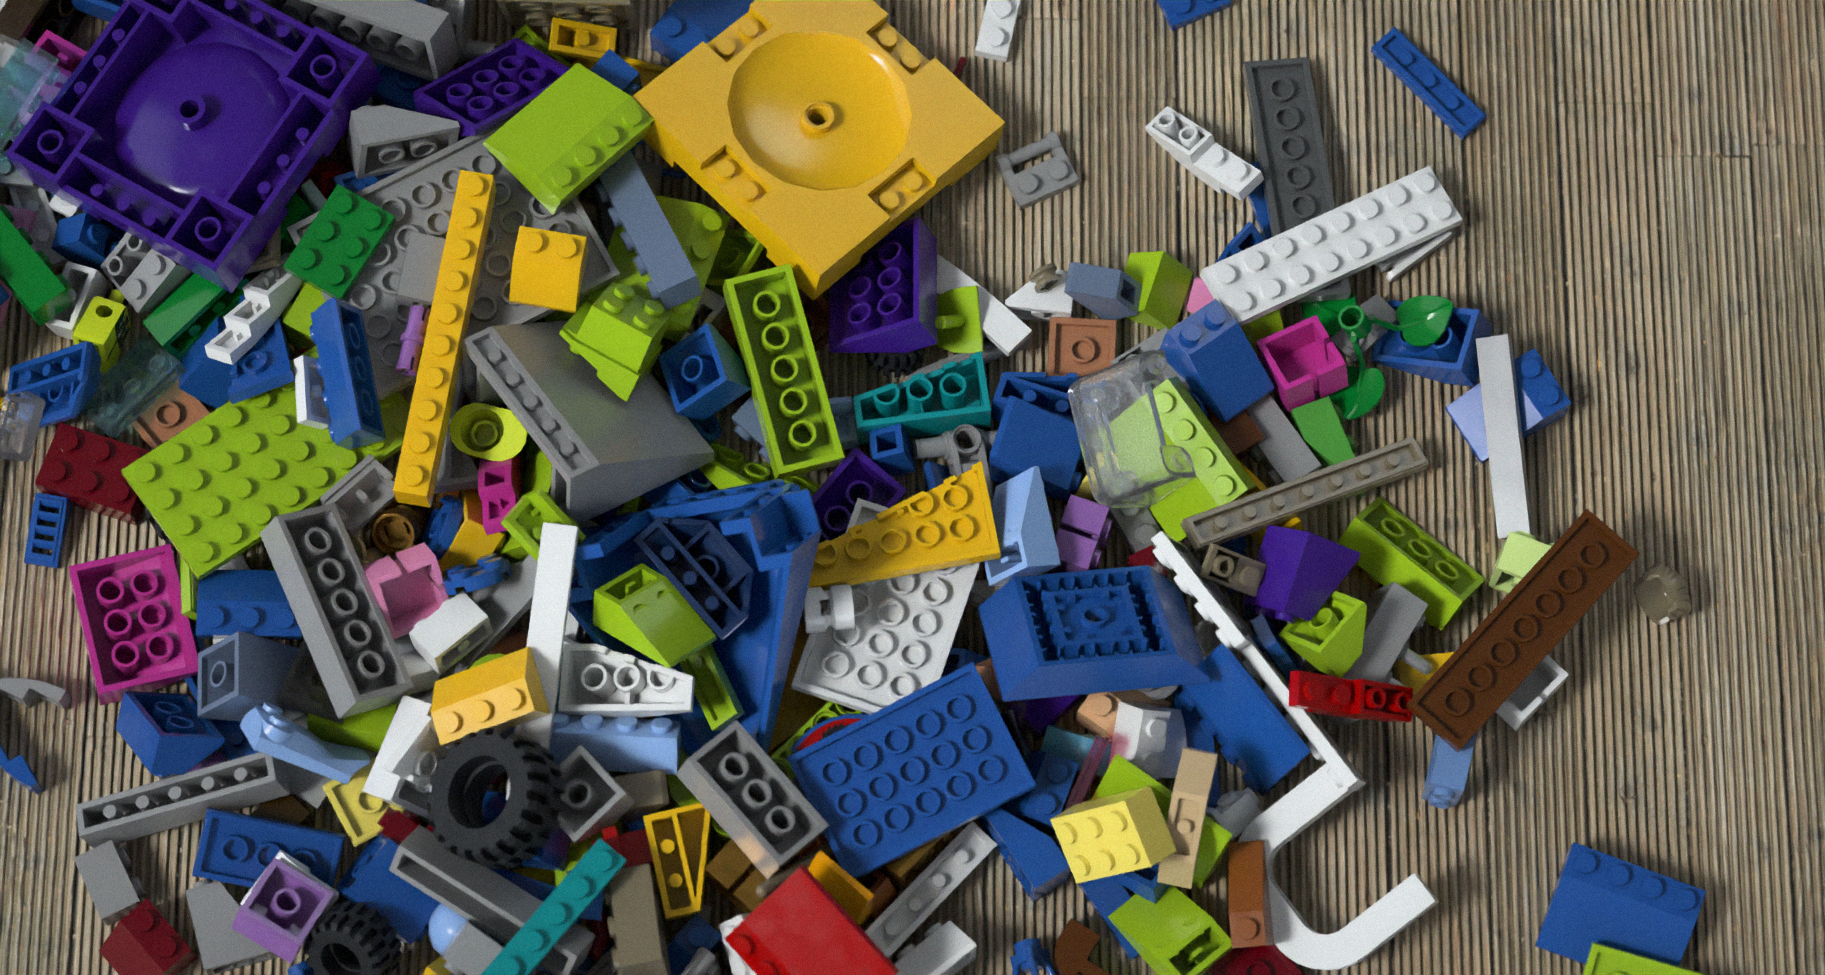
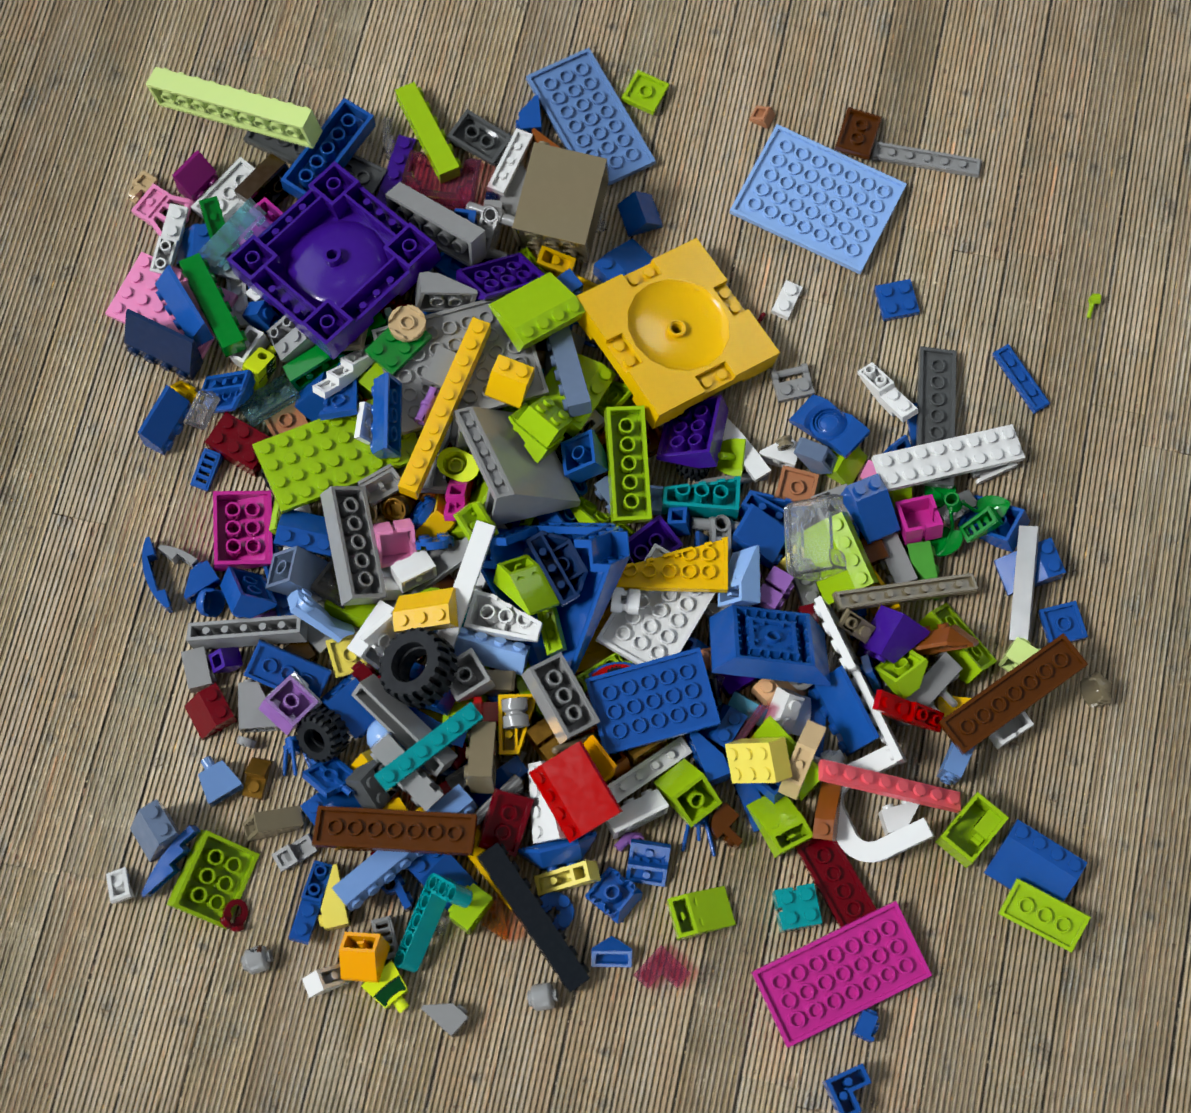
camera: 10 degrees right, 0 degrees up
(80, 727) = (200, 577): none -> blue slope
(105, 760) = (210, 602): none -> blue hair
(155, 855) = (225, 660): none -> dark purple brick
(348, 204) = (407, 323): none -> tan tile
(679, 841) = (515, 713): none -> light grey wheel
(1004, 915) = (688, 792): none -> lime slope
(1117, 231) = (830, 425): none -> blue slope
(1344, 831) = (889, 786): none -> coral plate
(1370, 881) = (896, 817): none -> white slope
(1387, 561) = (944, 639): none -> dark orange wedge
(1428, 348) = (991, 525): none -> green slope
(1500, 877) = (972, 830): none -> lime piece
(1582, 486) = (1063, 619): none -> blue plate

